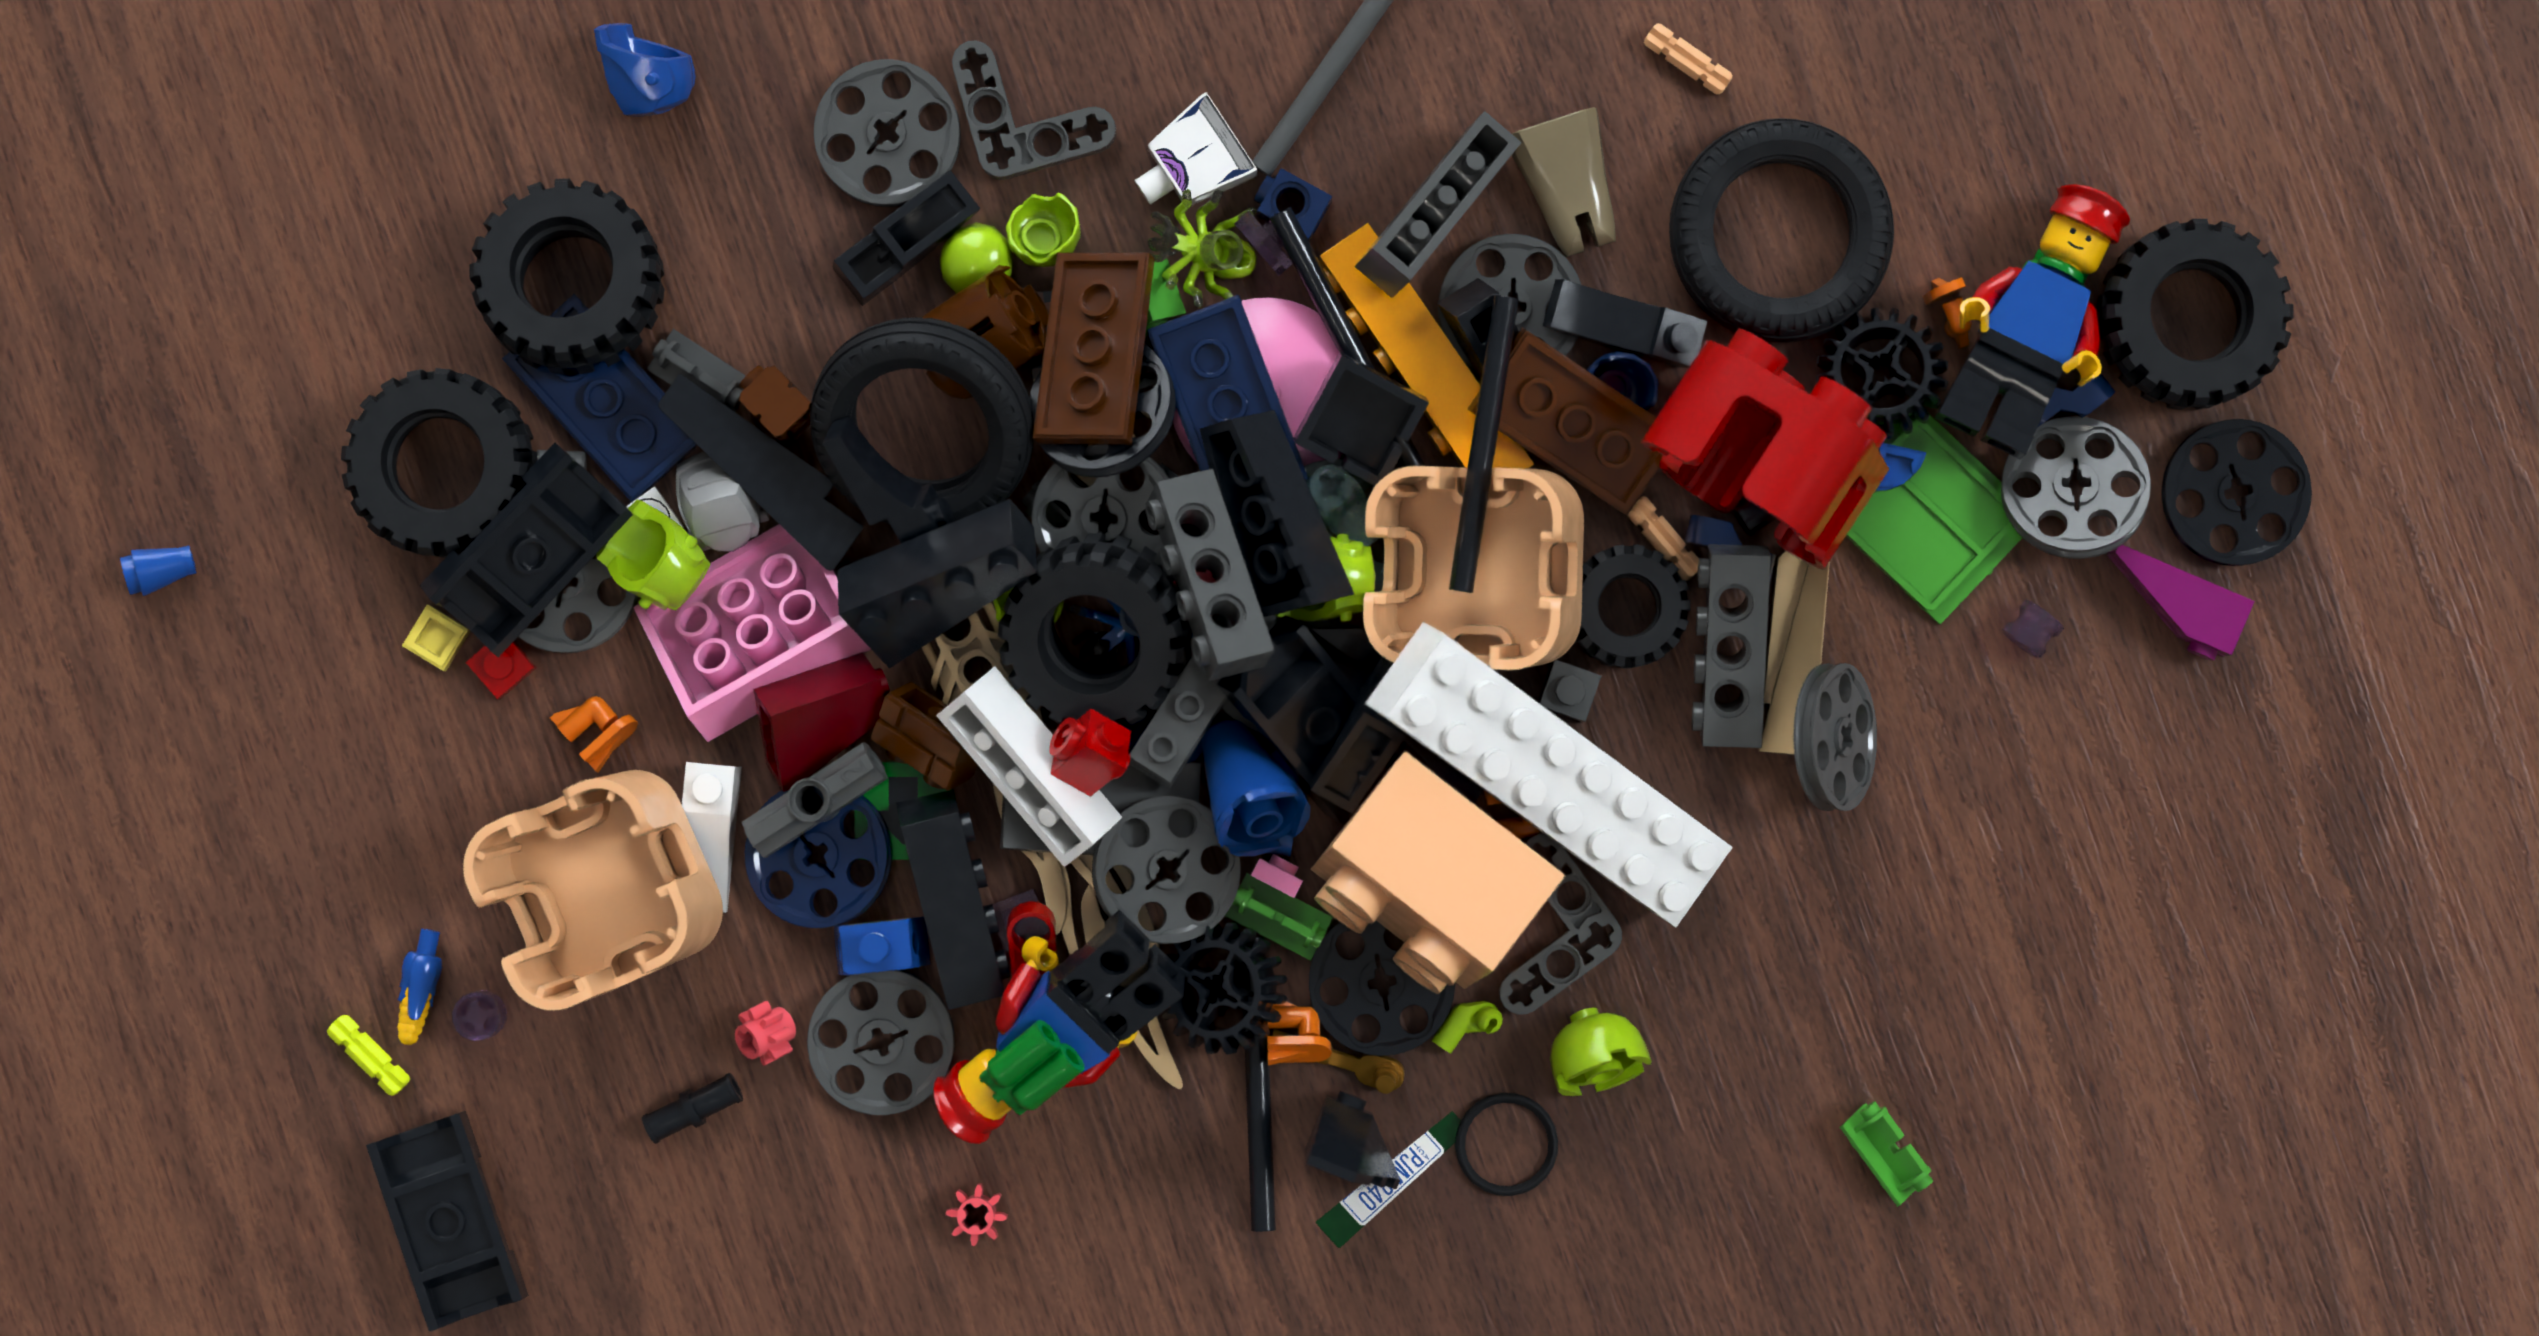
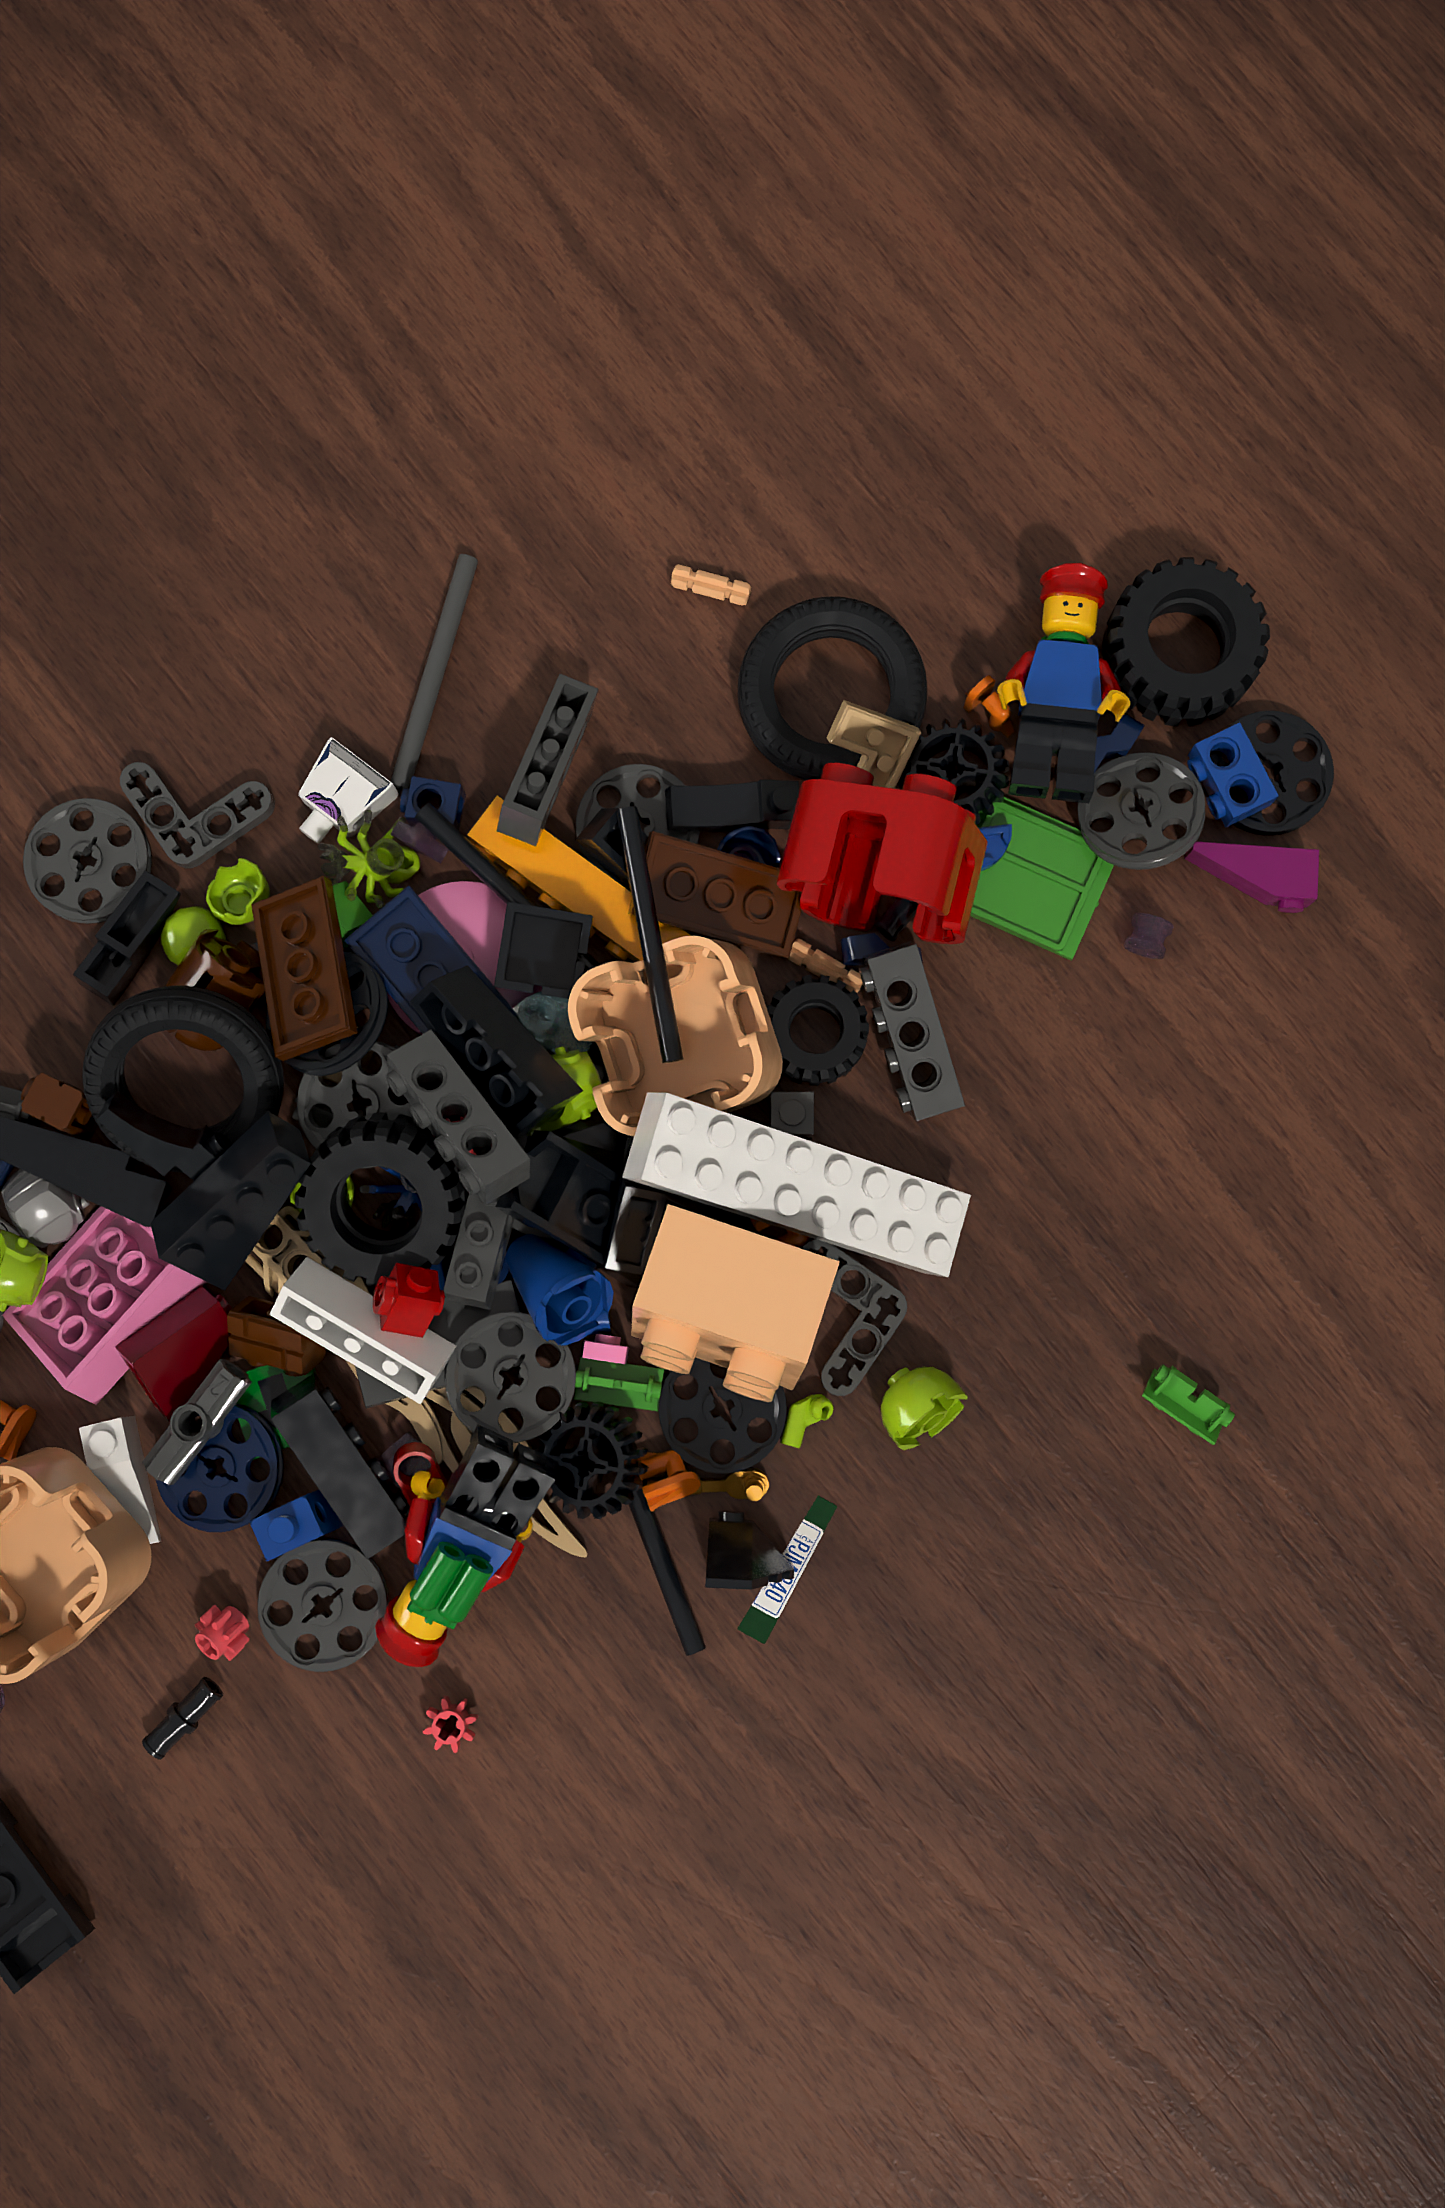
camera: 20 degrees left, 5 degrees down
(1550, 1159) = (912, 1515): black tyre -> none
(1568, 177) = (646, 706): dark tan piece -> none
(1792, 645) = (965, 1024): tan wedge -> none
(1812, 316) = (880, 740): none -> tan tile
(1835, 737) = (1022, 1075): dark grey wedge -> none
(2203, 484) = (1243, 772): none -> blue brick

